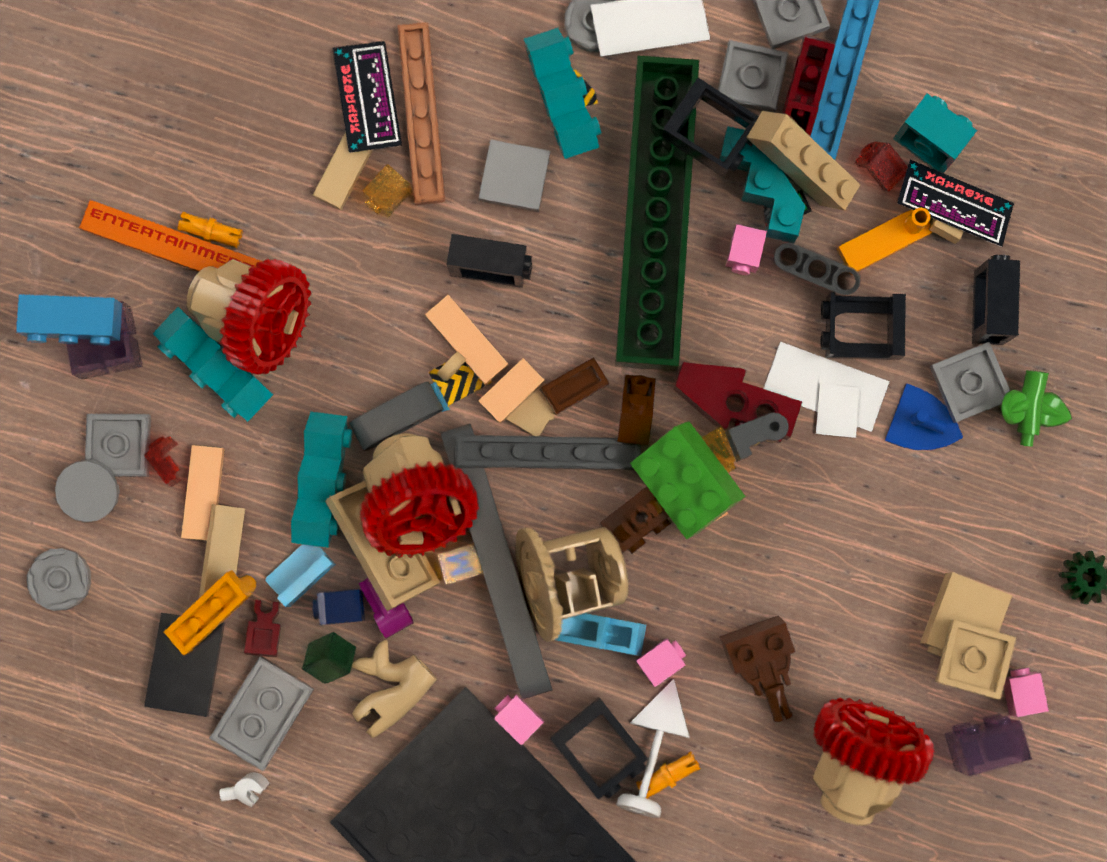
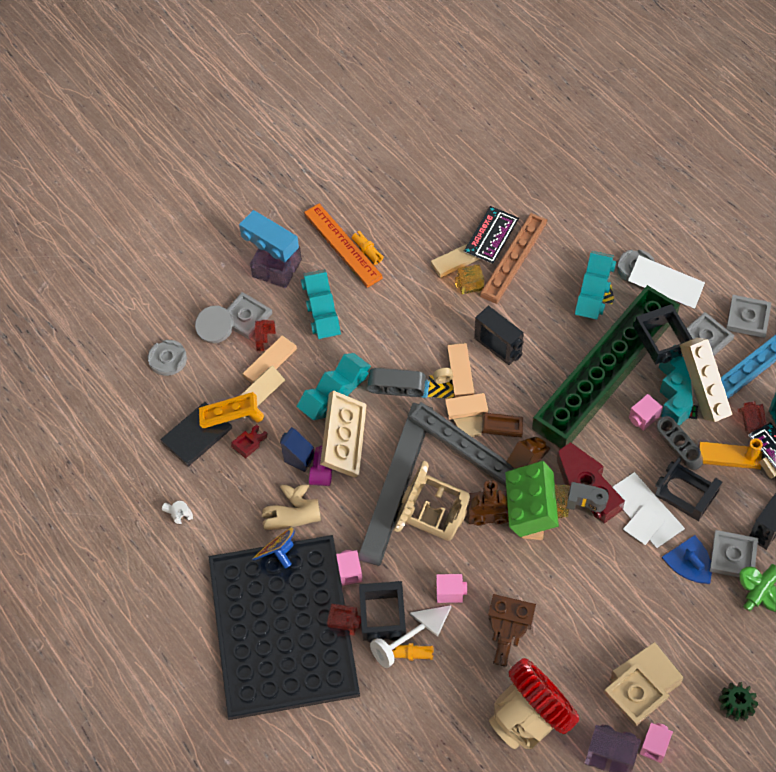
camera: 35 degrees right, 25 degrees down
(252, 311) = (361, 287): red piece -> none
(261, 713) = (216, 482): light grey tile -> none
(299, 573) = (281, 425): medium azure panel -> none
(329, 658) = (272, 474): clear green panel -> none
(412, 757) = (280, 547): none -> shield
(414, 498) = (375, 417): red piece -> none
(458, 564) = (374, 471): clear yellow brick -> none
(514, 175) = (542, 311): light grey tile -> none
(560, 792) = (344, 618): none -> clear red bracket
(603, 633) = (425, 550): medium azure slope -> none
(808, 81) = (736, 346): dark red brick -> none

